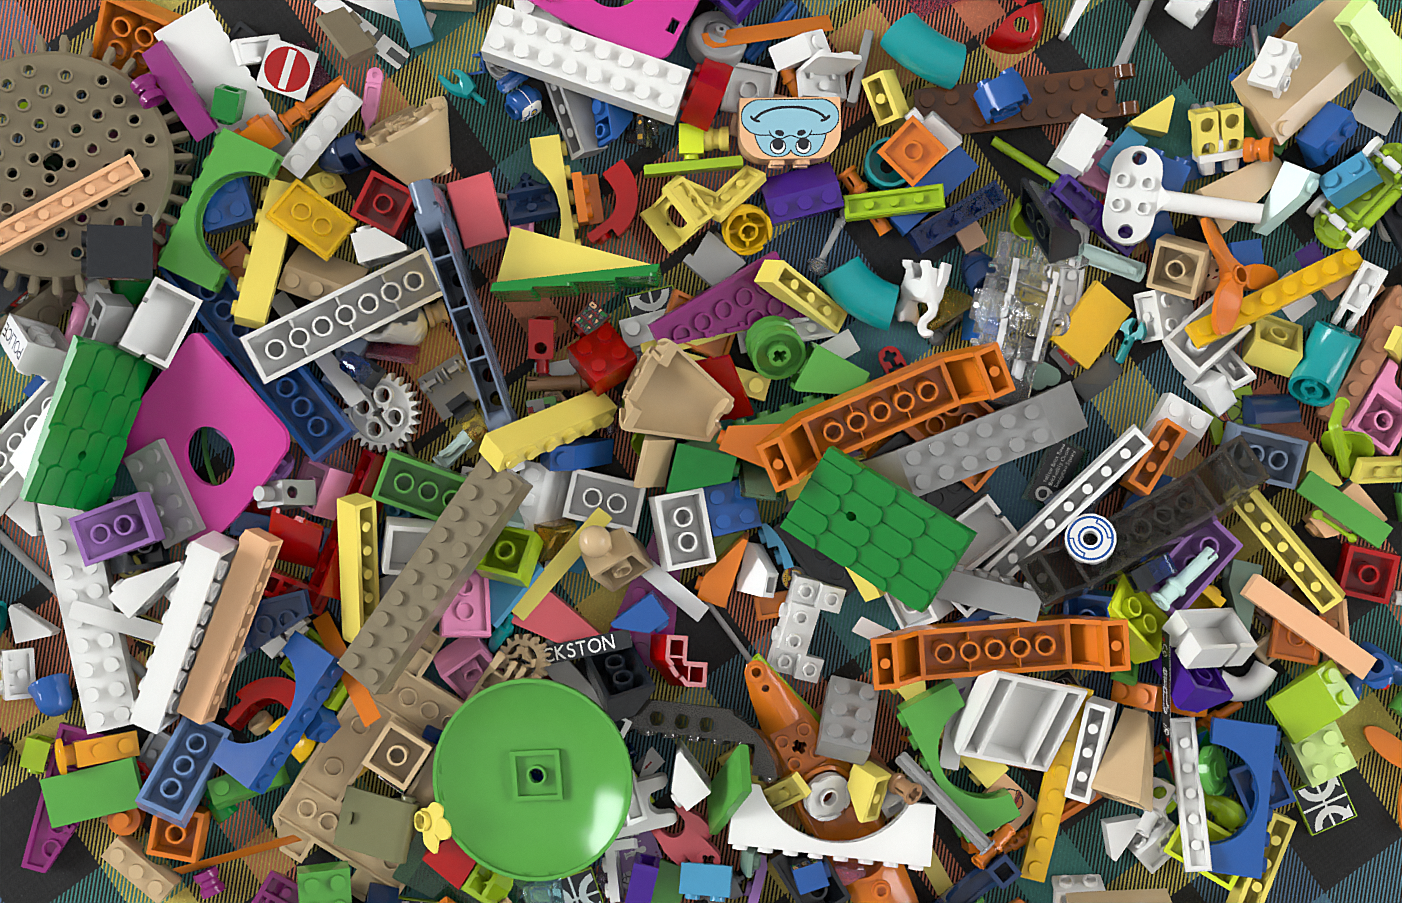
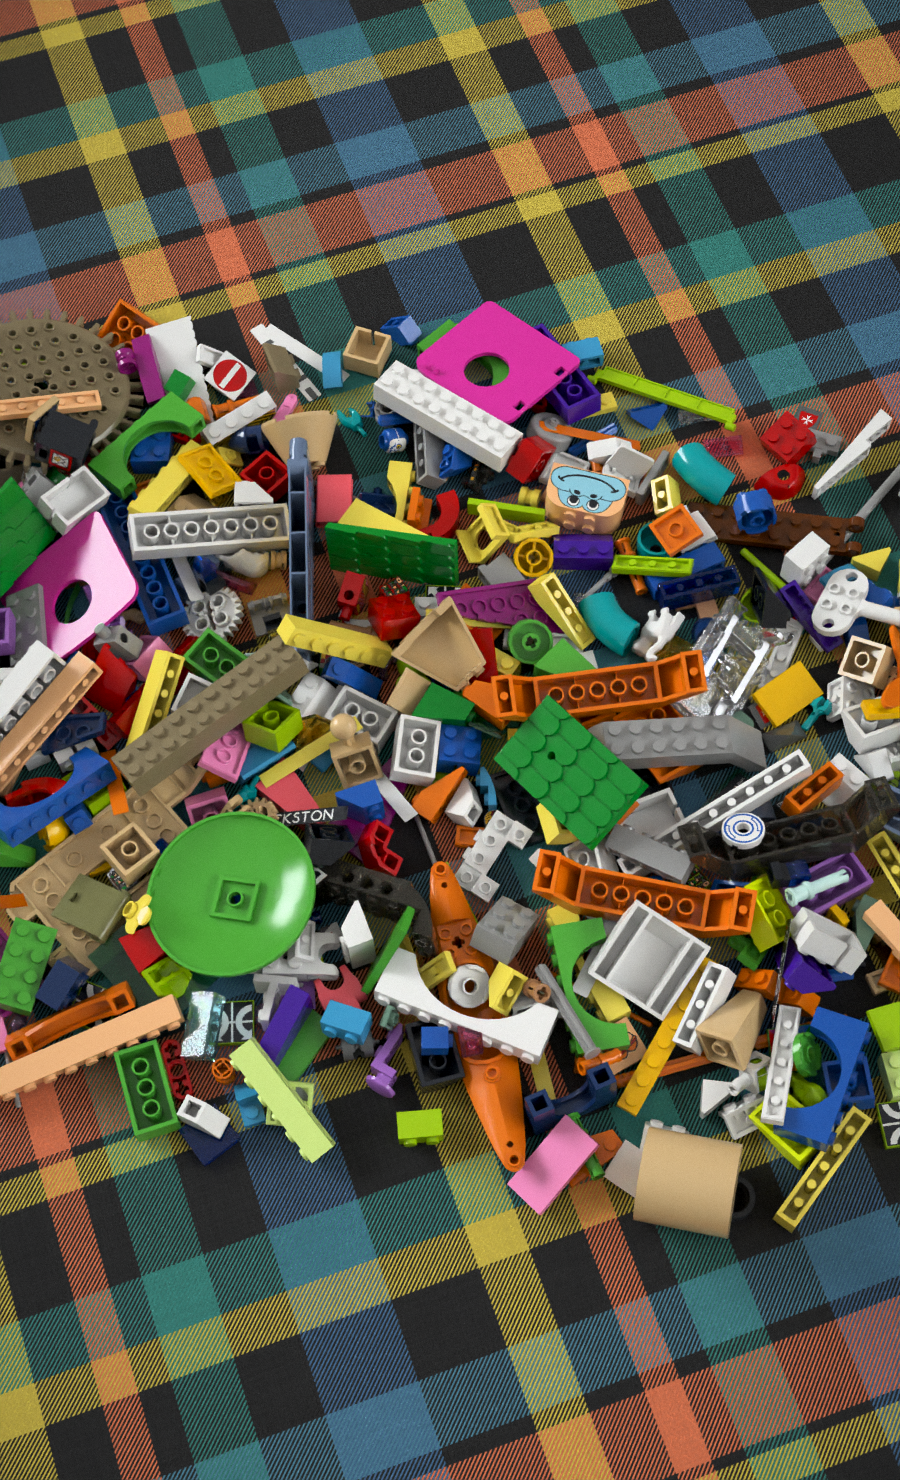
camera: 20 degrees right, 25 degrees down
(73, 237) = (35, 419): none -> tan tile
(690, 142) = (509, 491): neon yellow brick -> none
(1113, 262) = (814, 653): light aqua piece -> none
(1250, 685) = (853, 1004): white cylinder -> none

